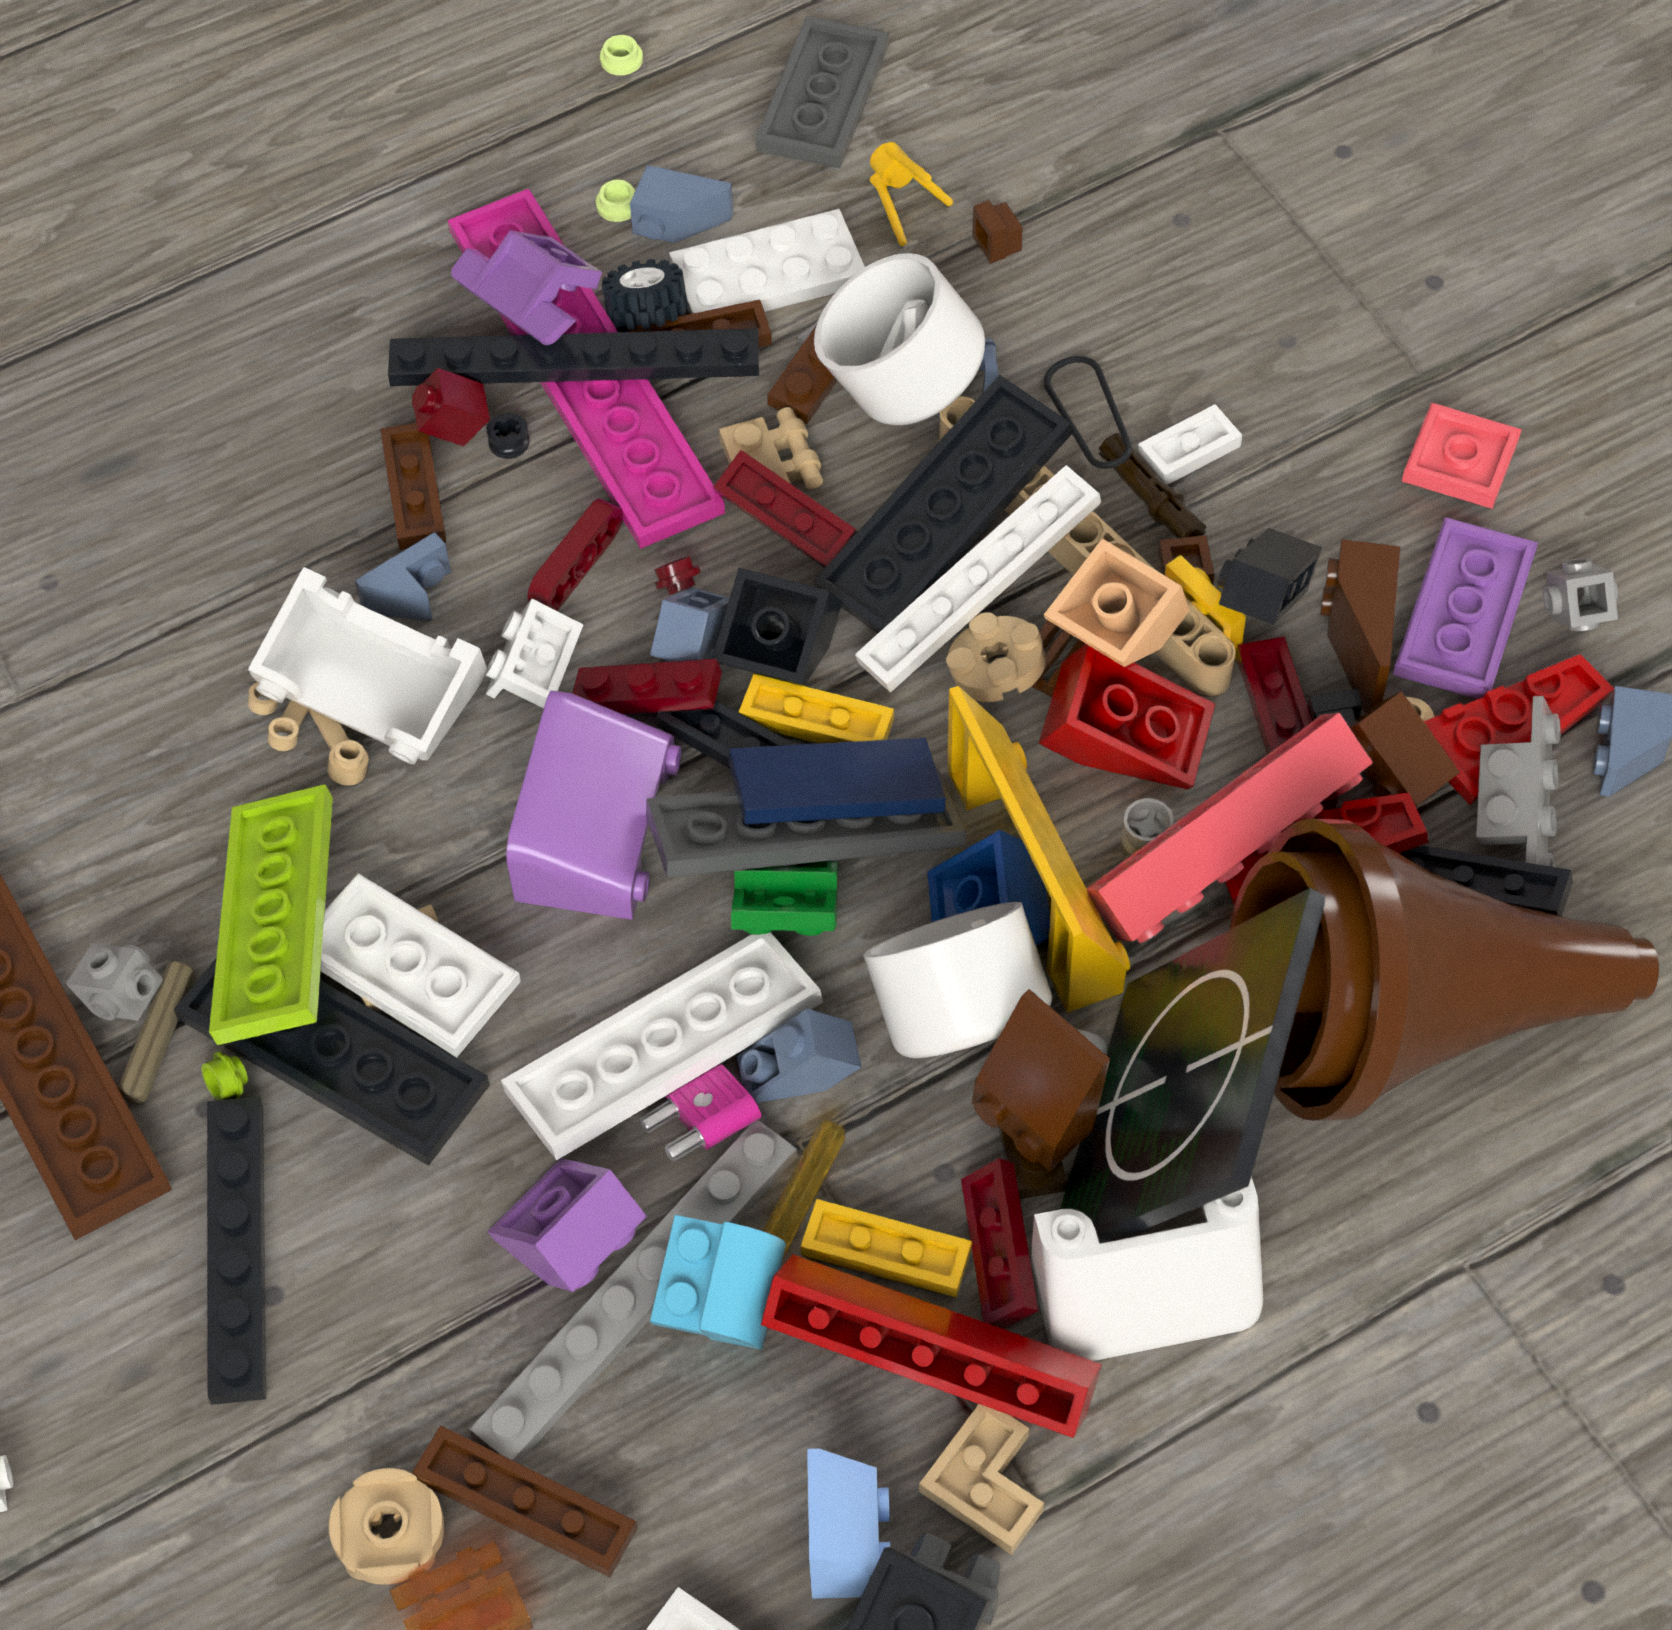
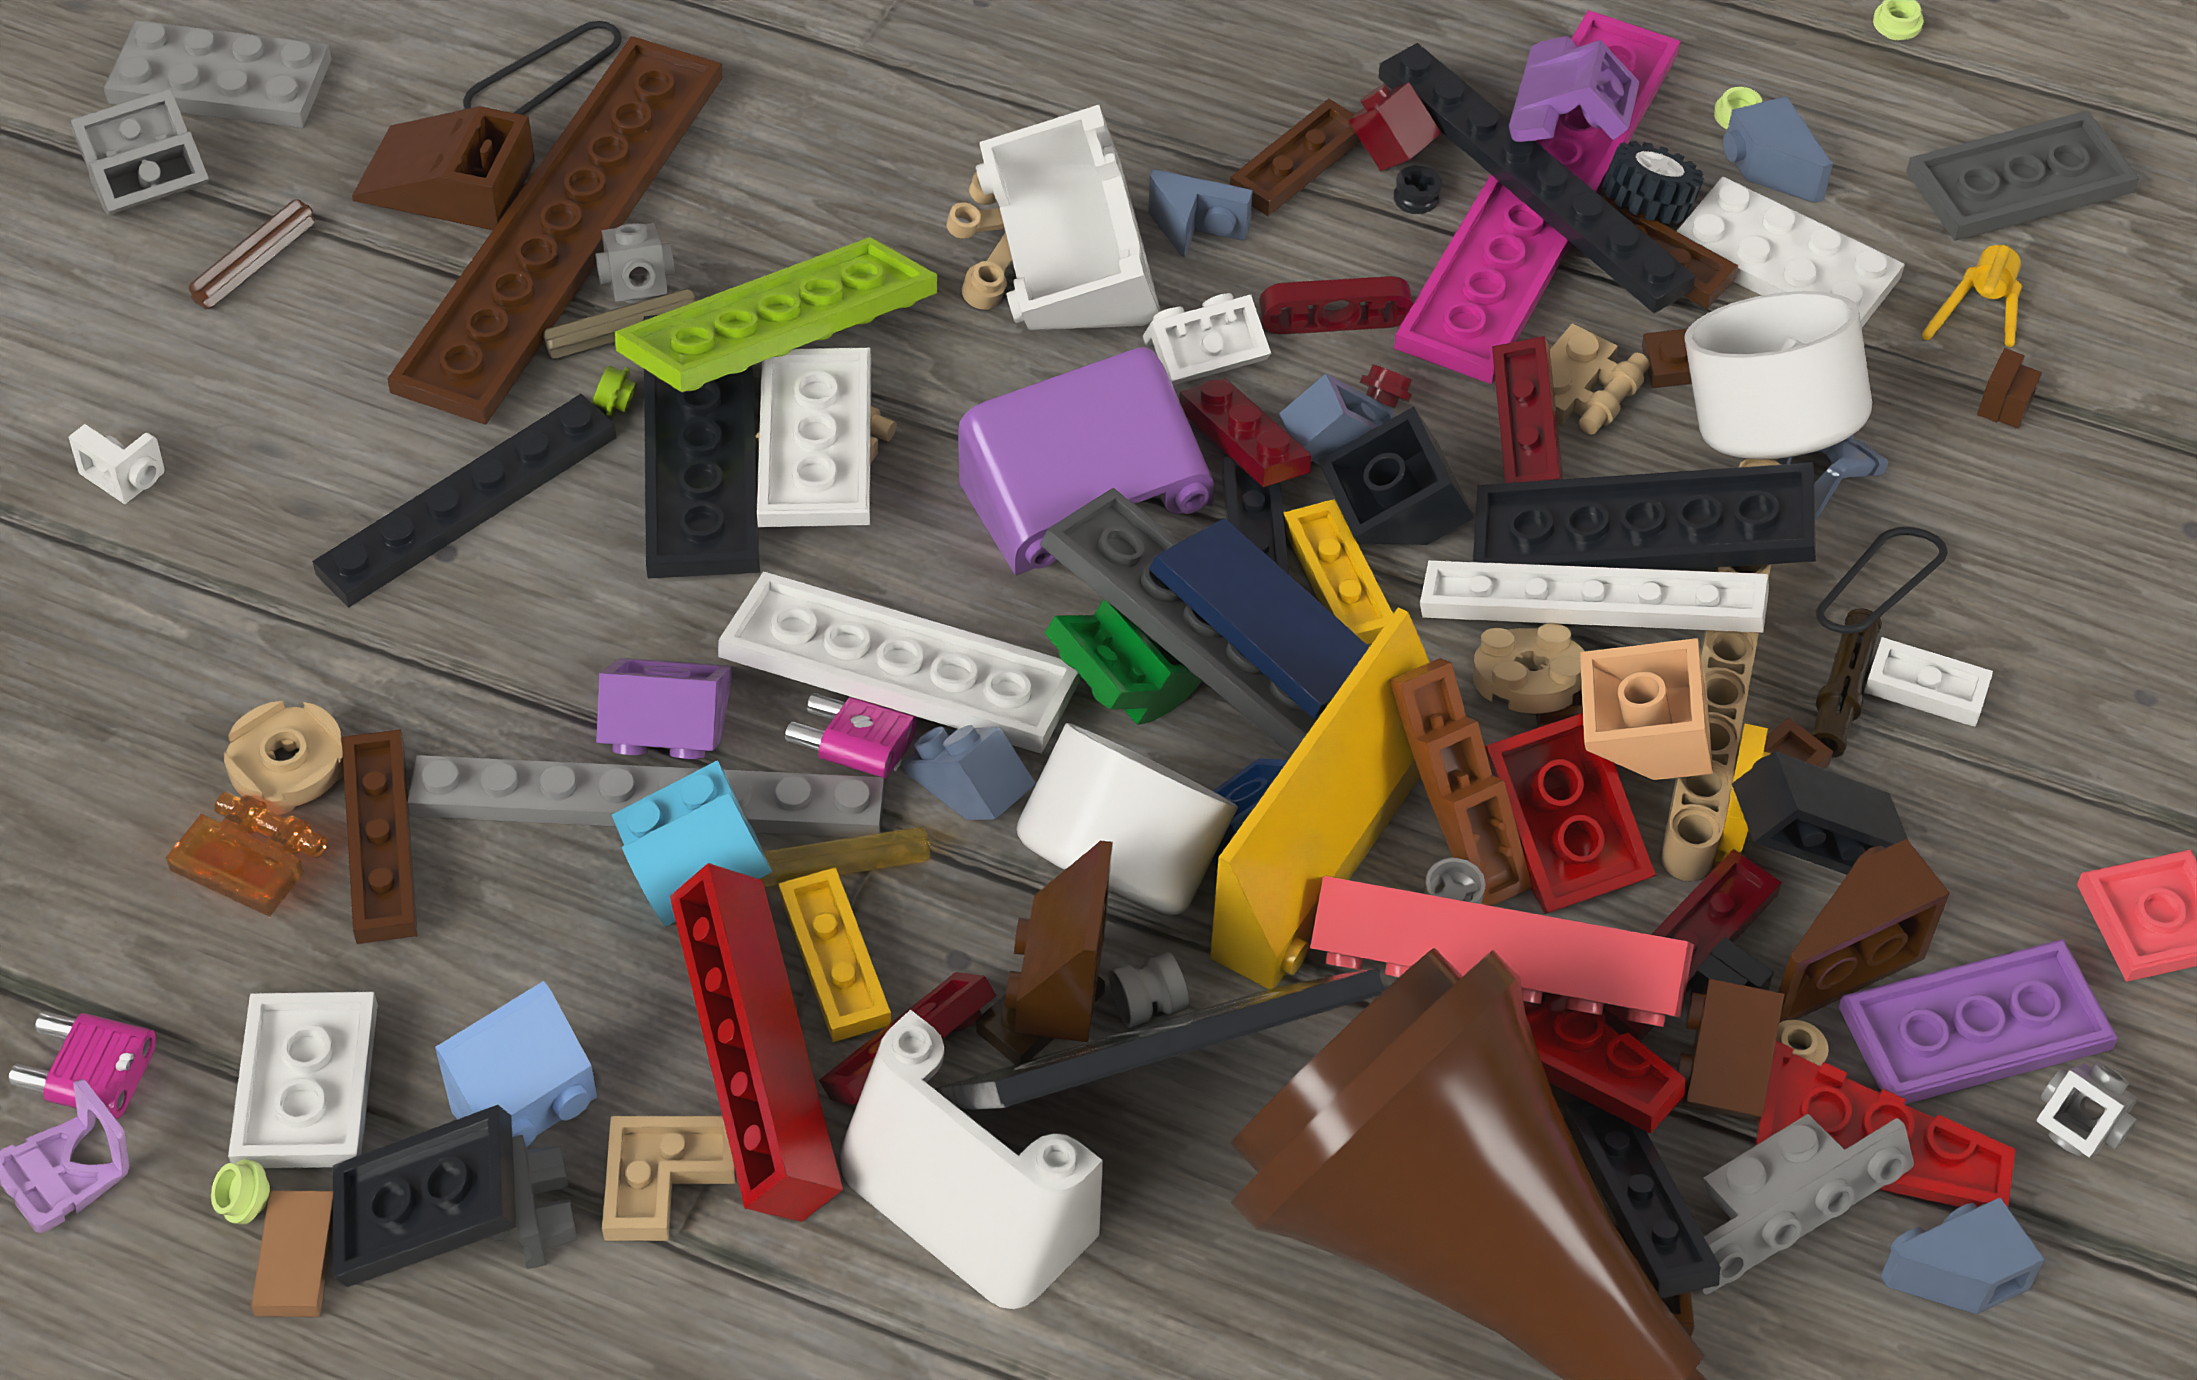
camera: 50 degrees right, 5 degrees down
(1063, 751) = (1458, 779): none -> dark orange slope

